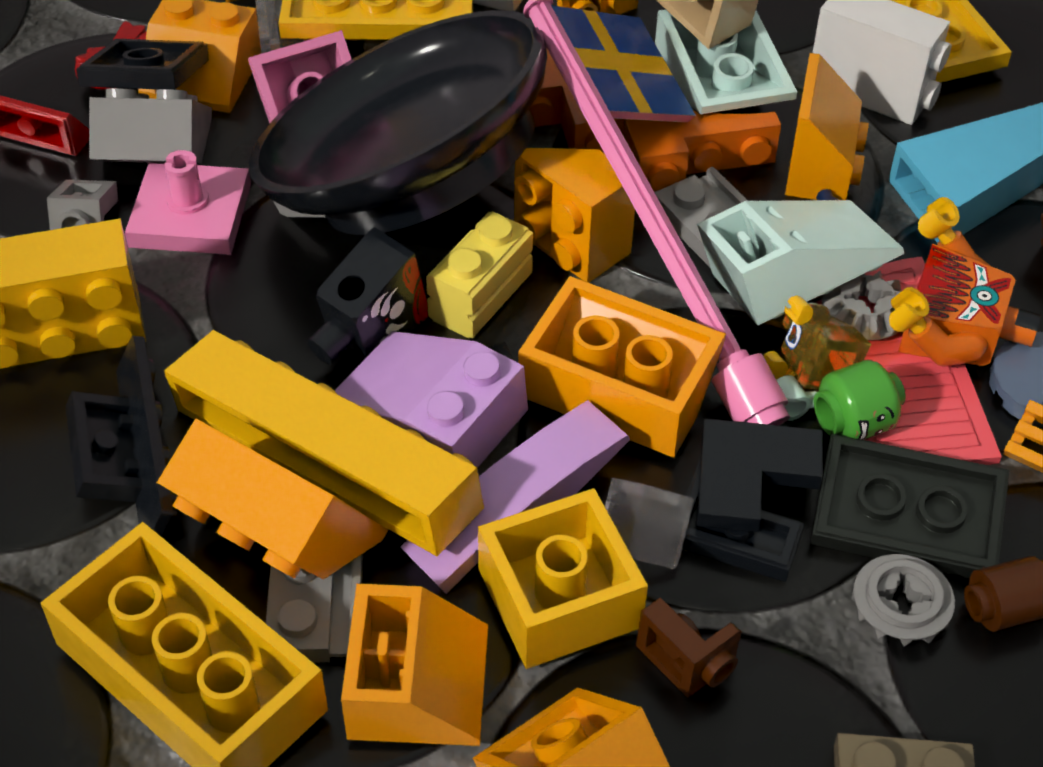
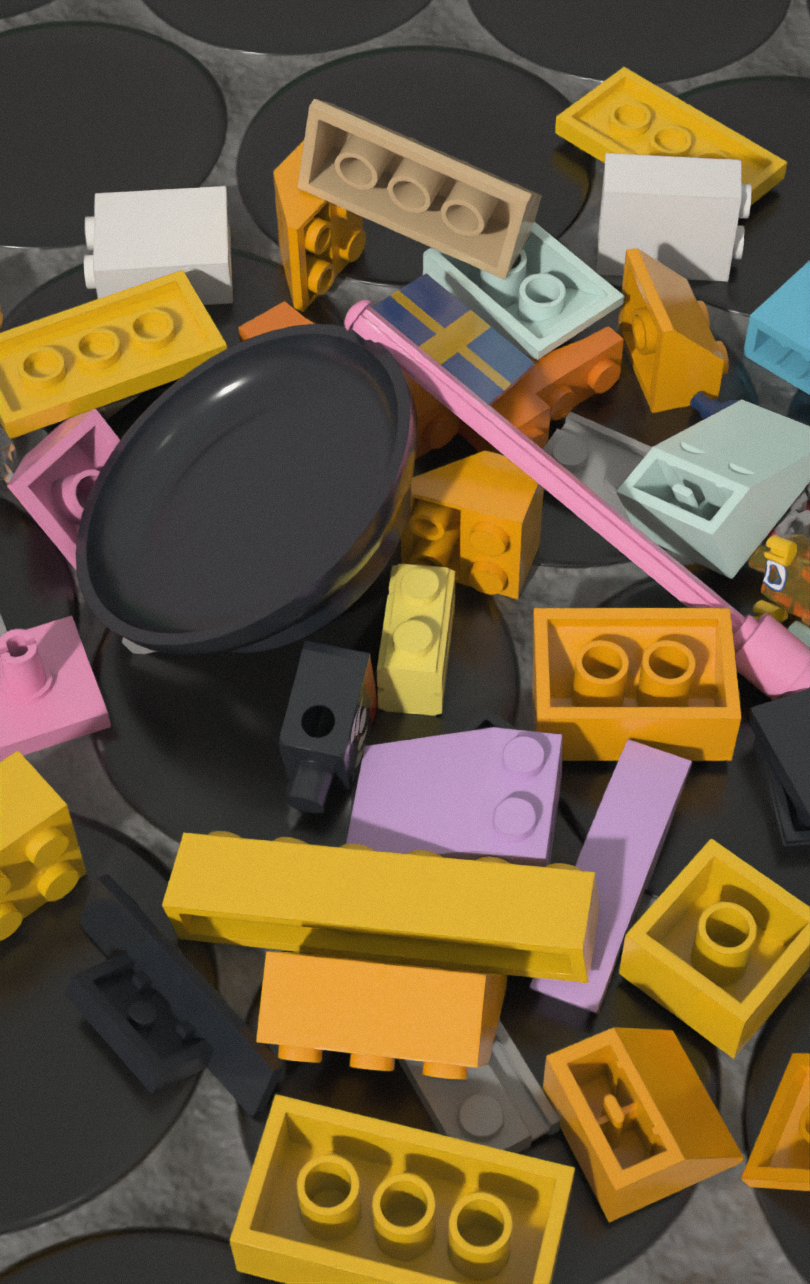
camera: 25 degrees left, 5 degrees up
(649, 520) = (762, 836): clear panel -> none

